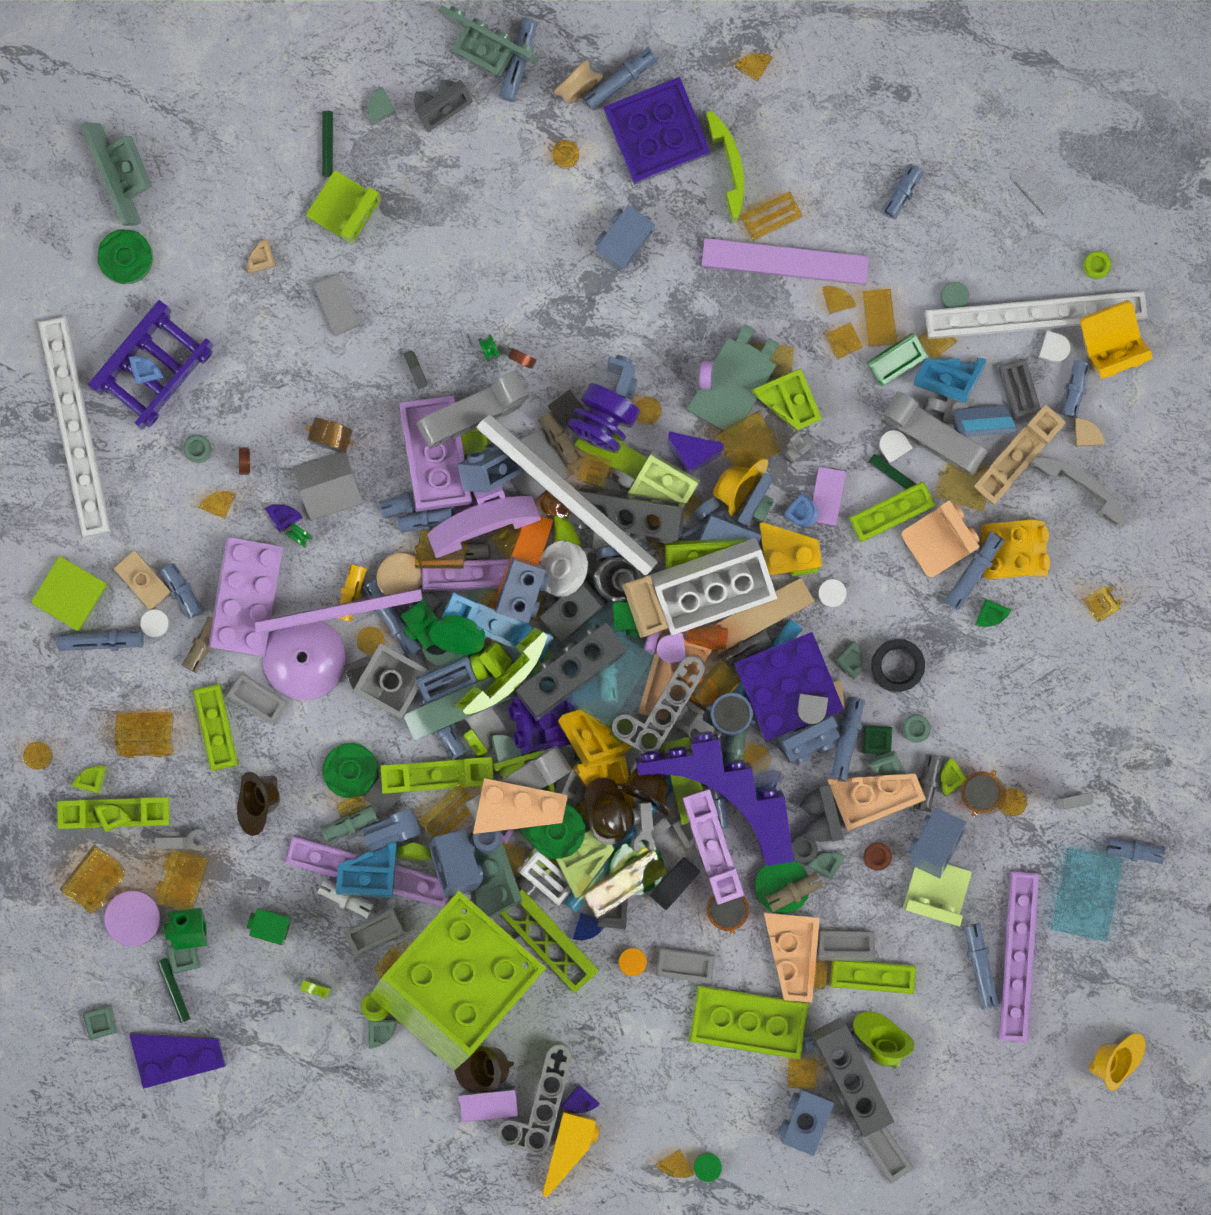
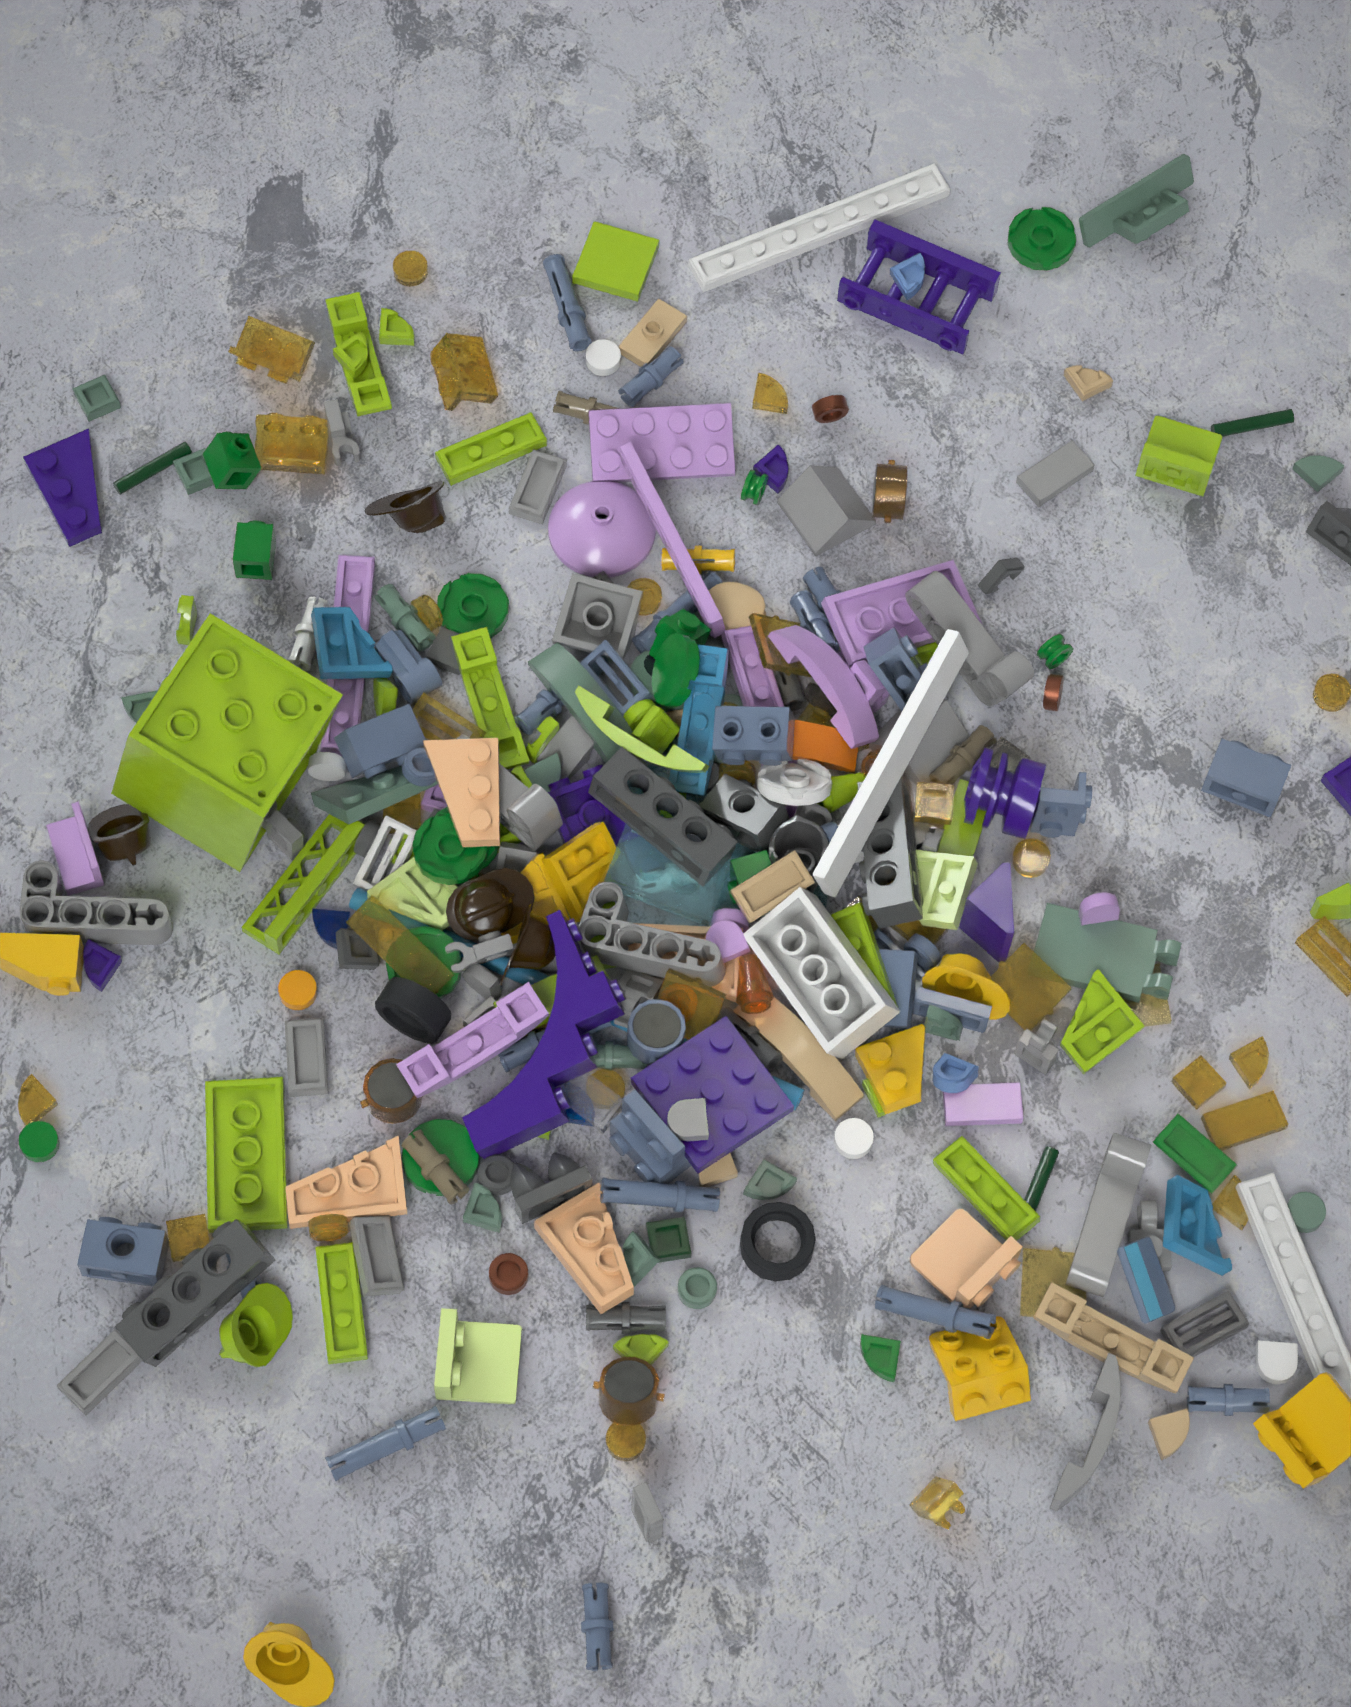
camera: 75 degrees right, 20 degrees down
(132, 918) = (232, 404): lavender tile -> none
(197, 448) = (830, 360): sand green tile -> none
(785, 261) = (1281, 986): lavender tile -> none
(894, 445) = (1076, 1176): white tile -> none
(937, 842) = (544, 1338): sand blue brick -> none
(1018, 956) = (409, 1495): lavender tile -> none
(1087, 894) = (518, 1572): clear light blue tile -> none

